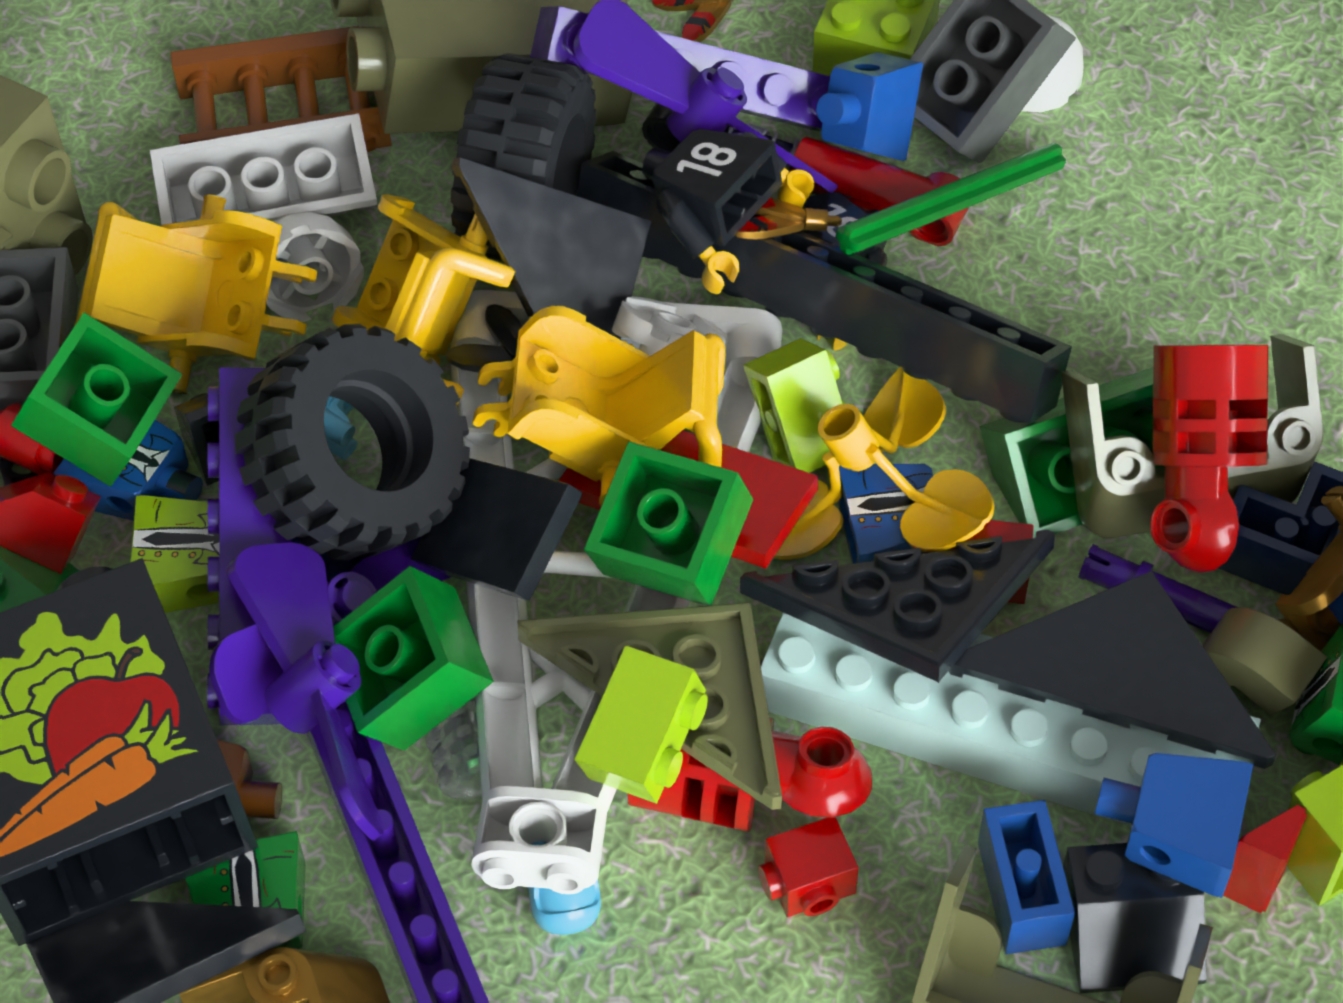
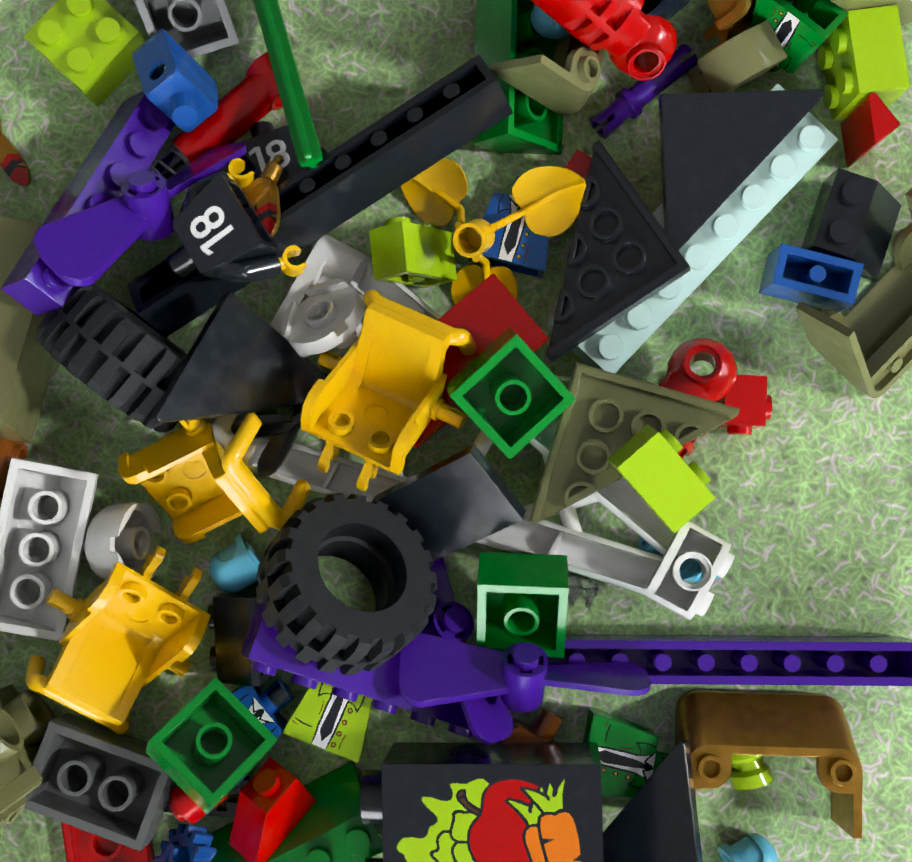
camera: 65 degrees left, 30 degrees up
(1182, 817) = (845, 166): blue torso -> none

